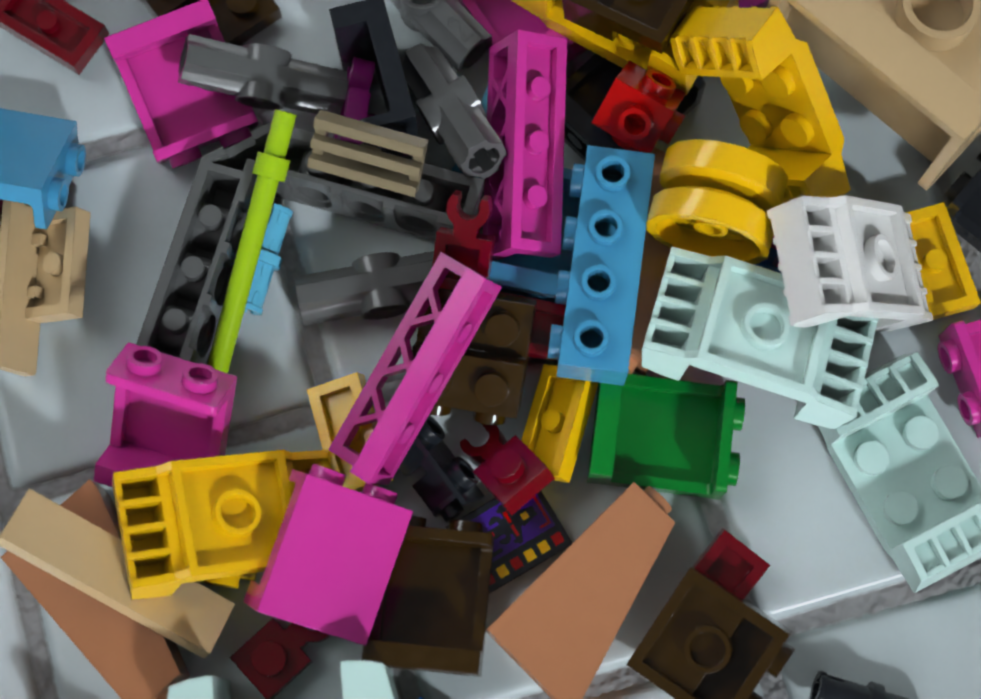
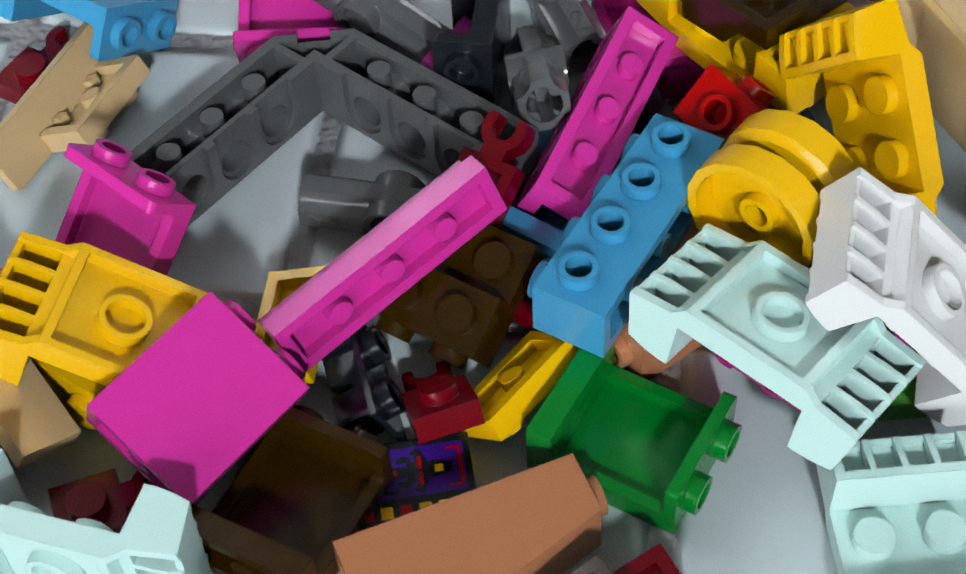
camera: 25 degrees right, 25 degrees down
(269, 258) = (288, 155): medium azure pin -> none
(270, 169) = (328, 57): lime bar -> none
(366, 162) = (391, 45): dark tan tile -> none

